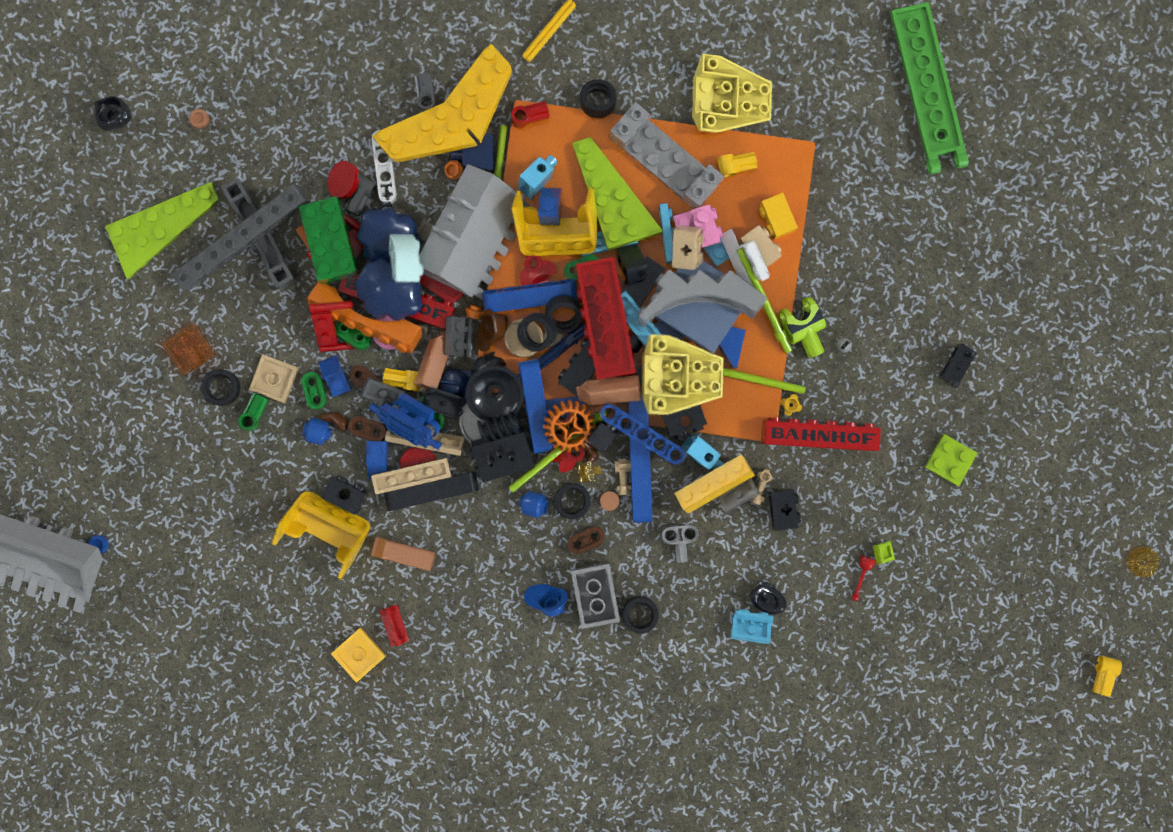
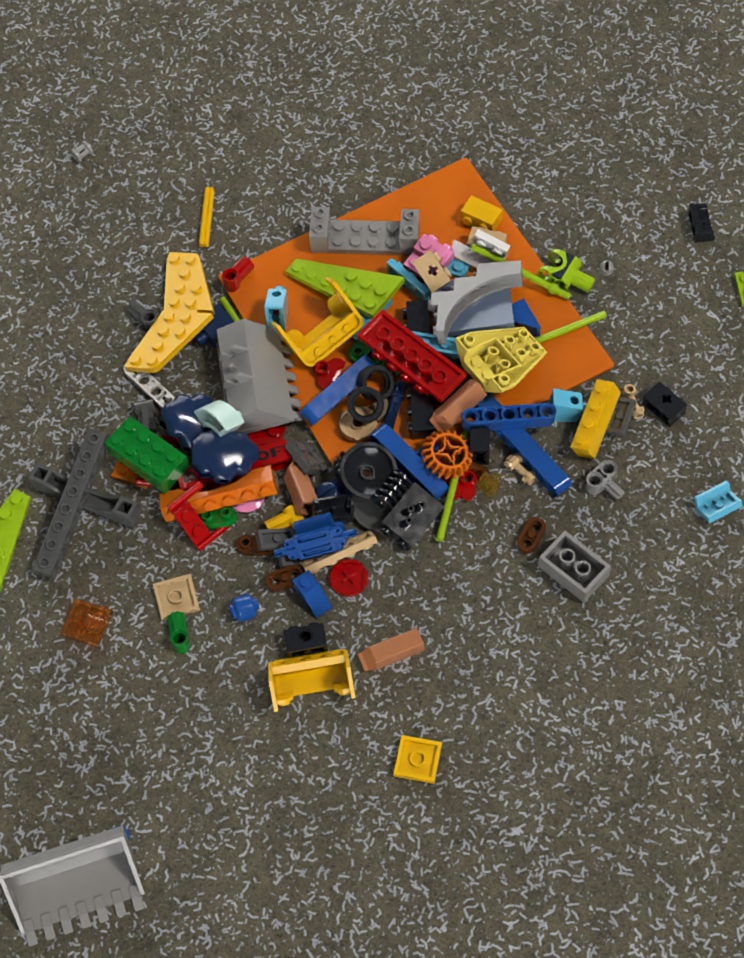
camera: 25 degrees left, 25 degrees down
(205, 387) = (139, 646): black tyre -> none
(314, 391) = (220, 579): green plate -> none
(334, 376) = (226, 559): blue slope -> none
(335, 417) = (254, 589): reddish brown arm -> none
(343, 180) = (122, 408): red tile -> none
(394, 625) = (428, 714): red hinge -> none
(411, 476) = (349, 584): tan plate -> none
(431, 491) = (374, 587): black beam -> none
(453, 170) = (207, 351): orange plate -> none
(474, 311) = (303, 434): orange plate -> none
(490, 329) = (326, 433): reddish brown piece -> none
(534, 504) = (467, 537): blue head -> none
(547, 599) = (540, 600): blue piece -> none
(549, 206) = (305, 321): blue slope -> none
(572, 515) = (496, 527): black tyre -> none
(597, 111) = (283, 240): black tyre -> none
(609, 501) = (525, 495): nougat tile -> none
(630, 262) = (400, 310): black hinge -> none
(640, 600) = (627, 545): black tyre -> none
(673, 425) = (533, 383): black brick -> none
(728, 95) = (375, 169): light yellow wedge -> none
(731, 165) = (422, 201): yellow piece -> none
(768, 598) = (711, 475): black hat -> none
(796, 405) = (604, 327): yellow plate -> none
(821, 435) = (644, 334): red brick -> none
(928, 85) = (516, 73): bright green hinge -> none

